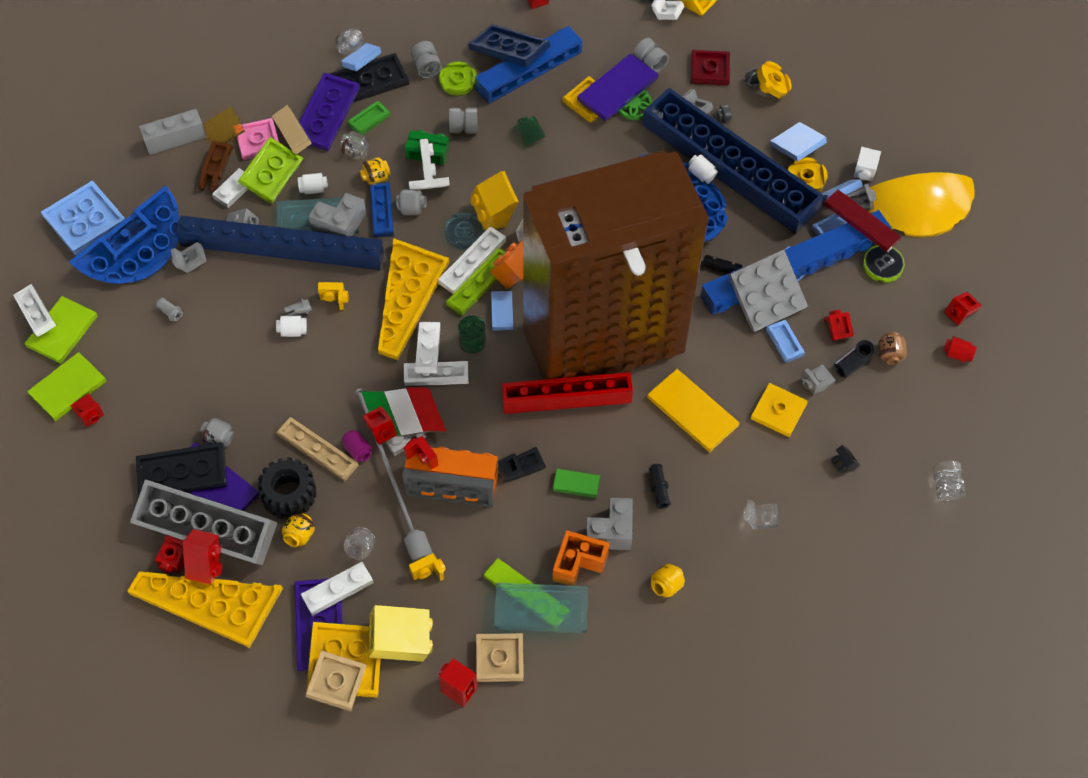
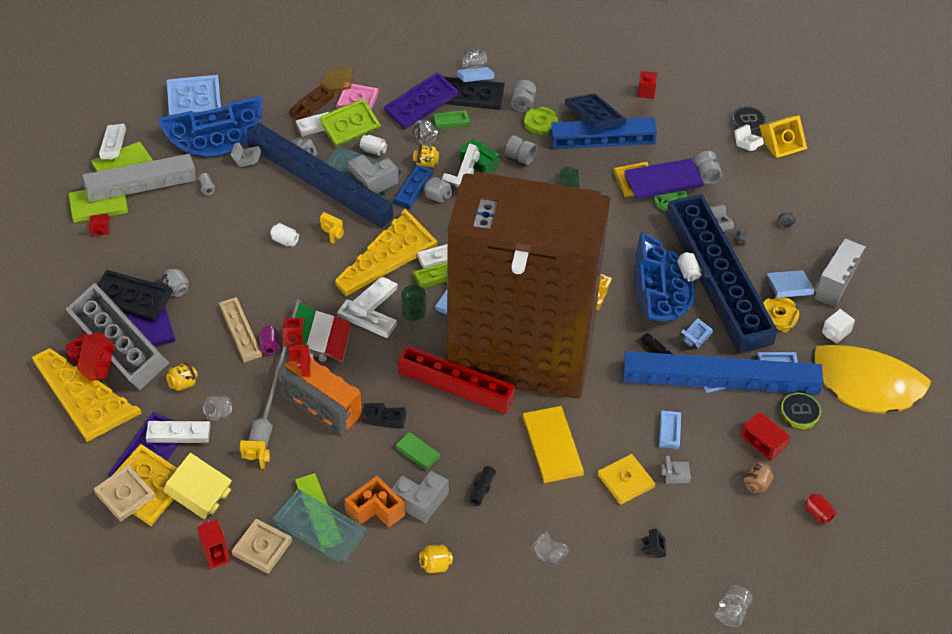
camera: 30 degrees right, 10 degrees down
(94, 338) = (139, 177): none -> light grey brick
(172, 131) = (298, 66): light grey brick -> none
(281, 473) = (195, 331): black tyre -> none
(291, 129) = (385, 101): tan tile -> none
(299, 308) = (302, 226): light grey pin -> none
(710, 67) = (755, 198): dark red tile -> none
(749, 233) = (696, 333): none -> light blue bracket
(768, 290) = (678, 381): light grey plate -> none
(773, 80) = (800, 235): yellow plate -> none
(834, 108) = (839, 272): none -> light grey wedge
(839, 324) = (724, 438): red bracket -> none
(846, 188) = (800, 337): light blue tile -> none
(854, 359) = (719, 470): black piece -> none
(862, 220) = (799, 365): dark red tile -> none
(864, 197) = (813, 352): light grey bracket -> none
(872, 304) = (765, 436): none -> red brick
(961, 307) = (847, 474): red bracket -> none

